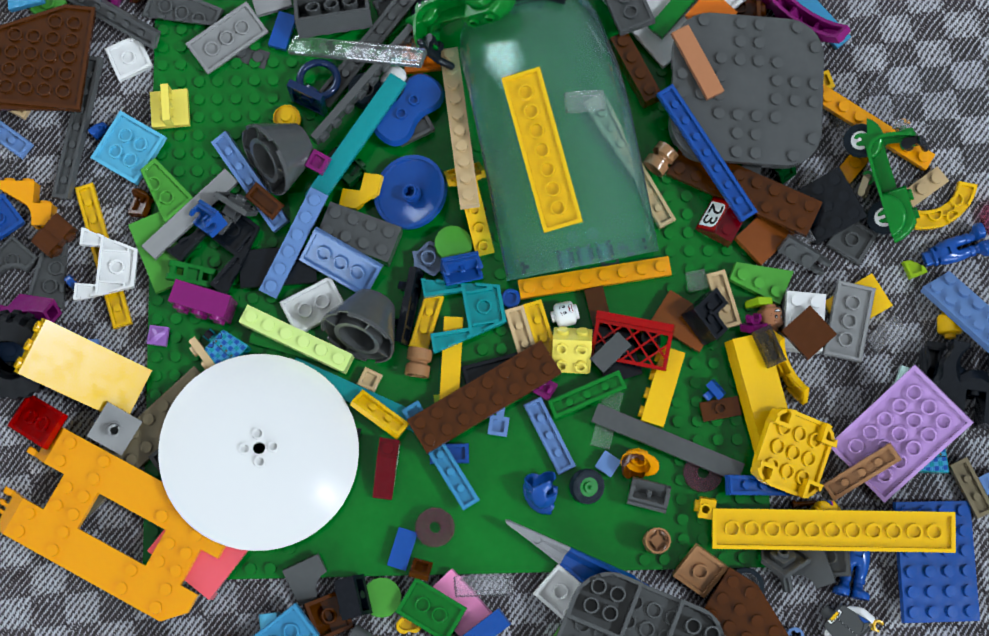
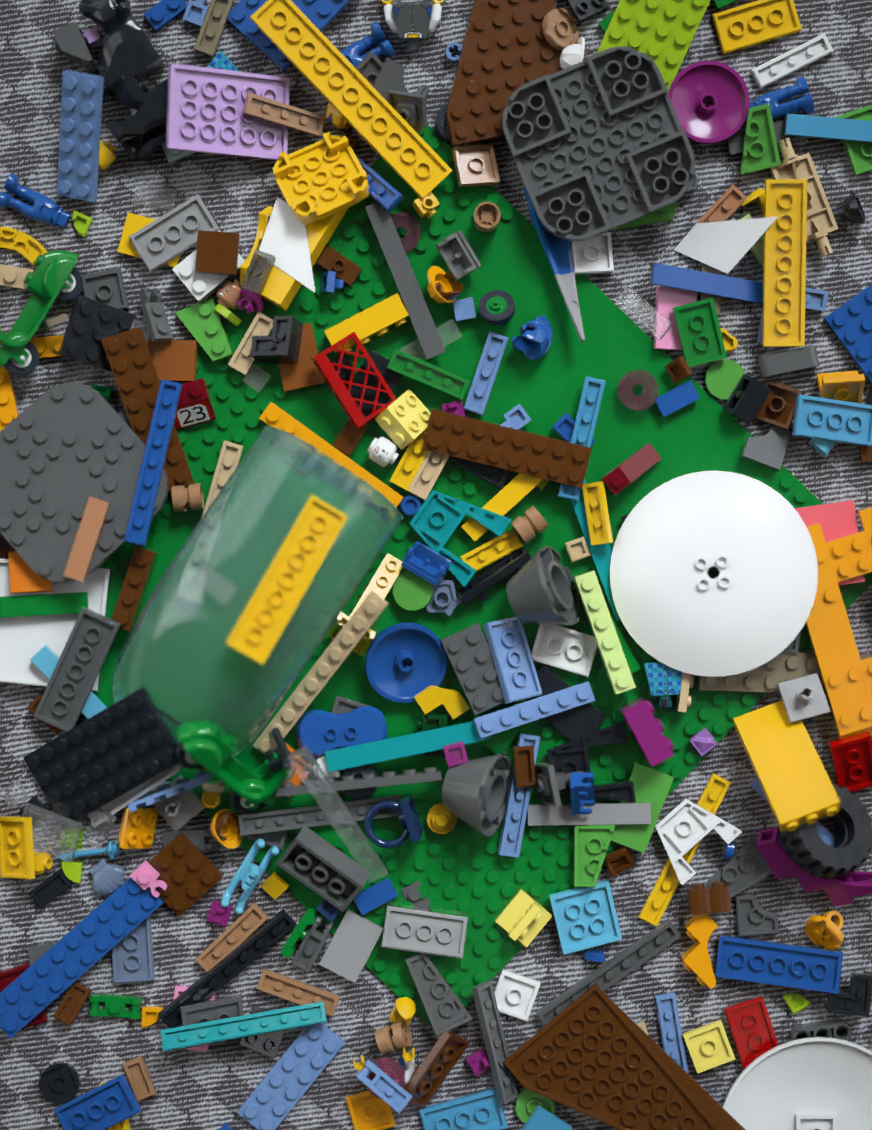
camera: 135 degrees left, 10 degrees up
(191, 273) = (634, 763): green plate -> none
(610, 352) = (379, 386): dark grey tile -> none
(768, 385) = (288, 242): none -> white sticker

